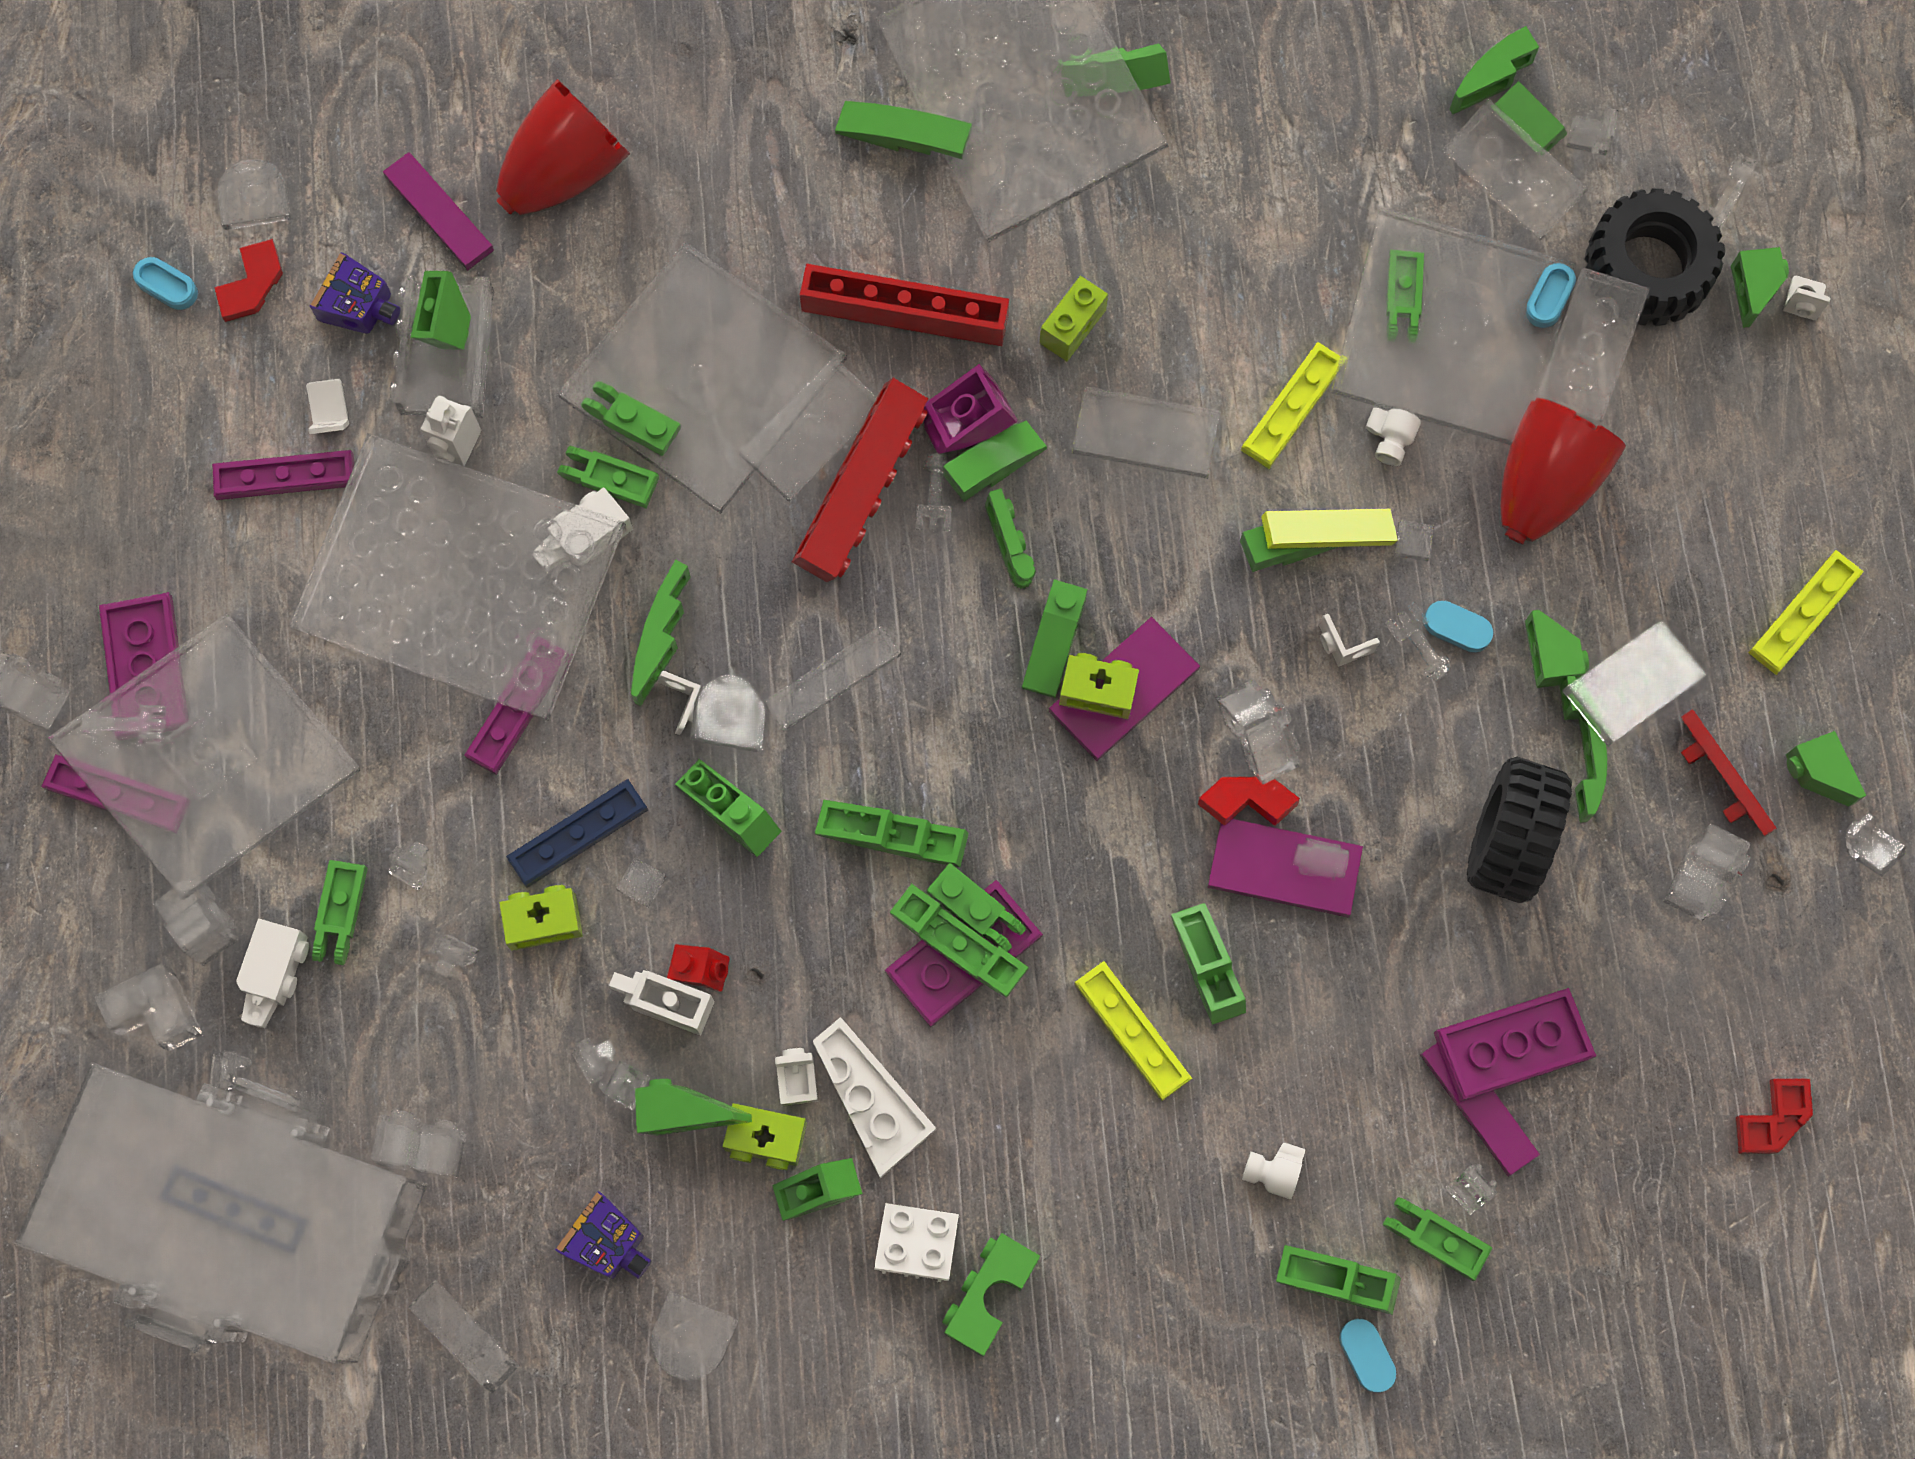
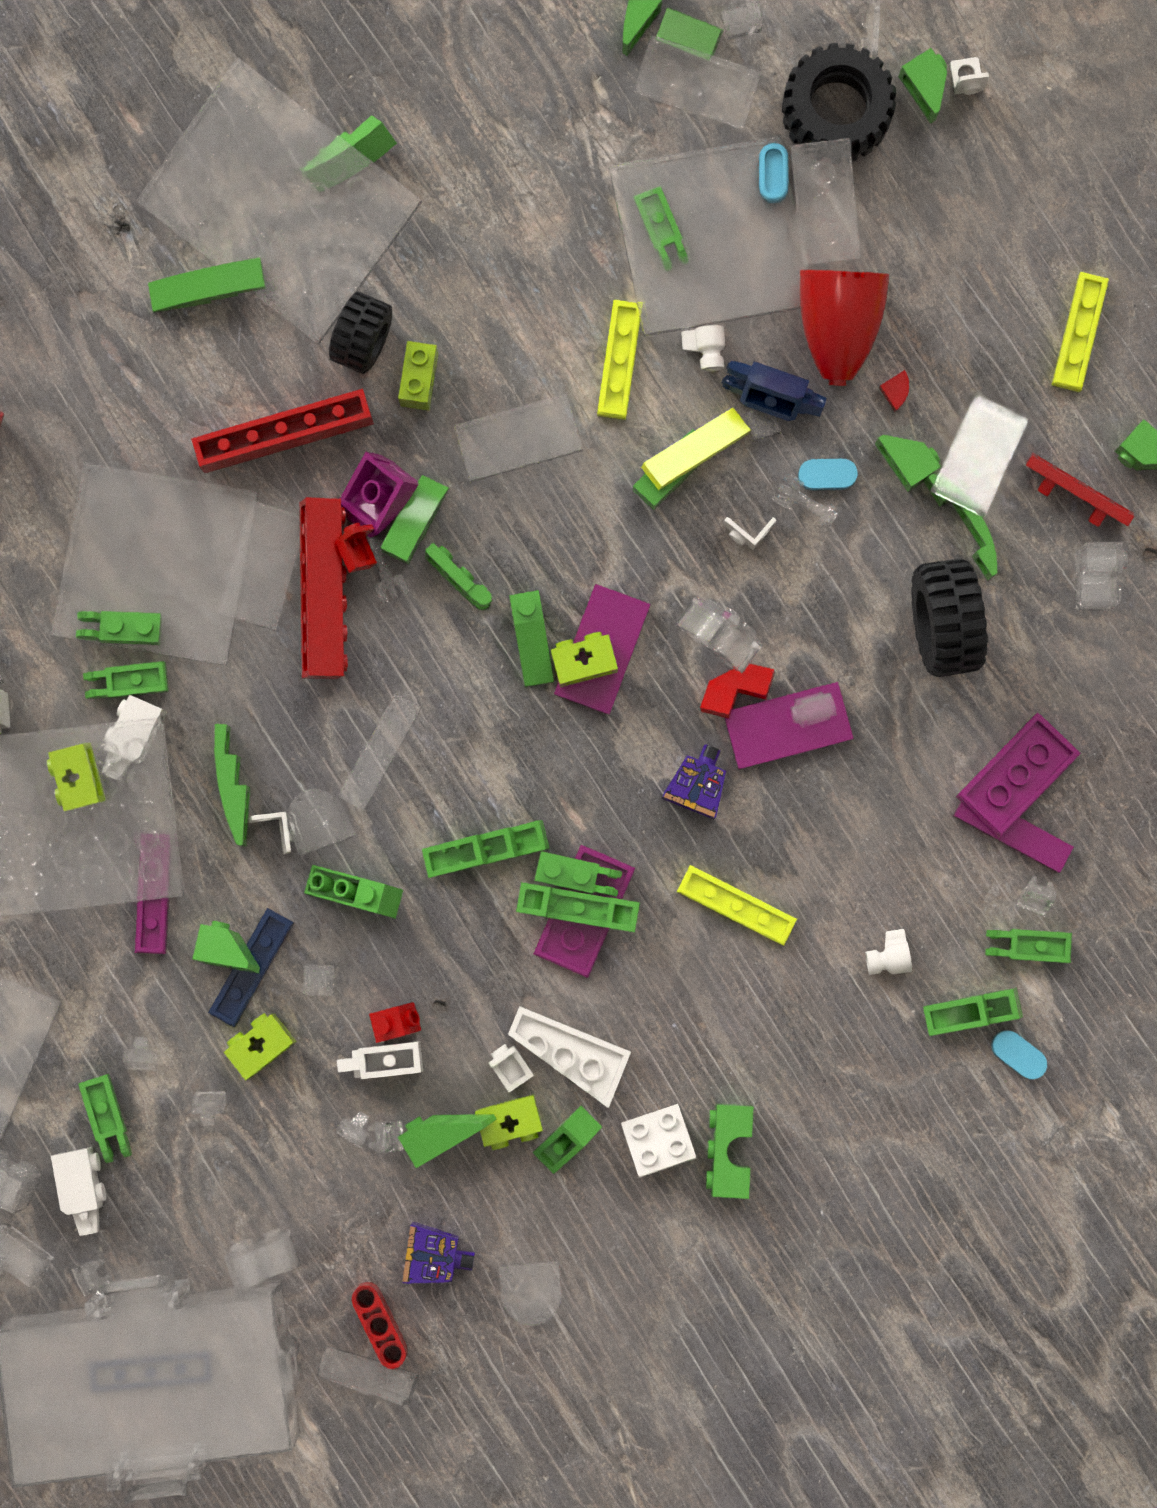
camera: 25 degrees left, 10 degrees up
(496, 1270) = (379, 1340): none -> red beam
(509, 554) = (70, 761): none -> lime brick
(558, 795) = (223, 948): none -> bright green slope
(917, 453) = (355, 547): none -> red bracket
(1036, 244) = (360, 332): none -> black tyre
(1155, 878) = (698, 783): none -> torso
(1209, 963) = (767, 827): bright green slope -> none
(1441, 510) = (772, 390): none -> dark blue hinge
(1575, 575) = (896, 390): none -> red tile

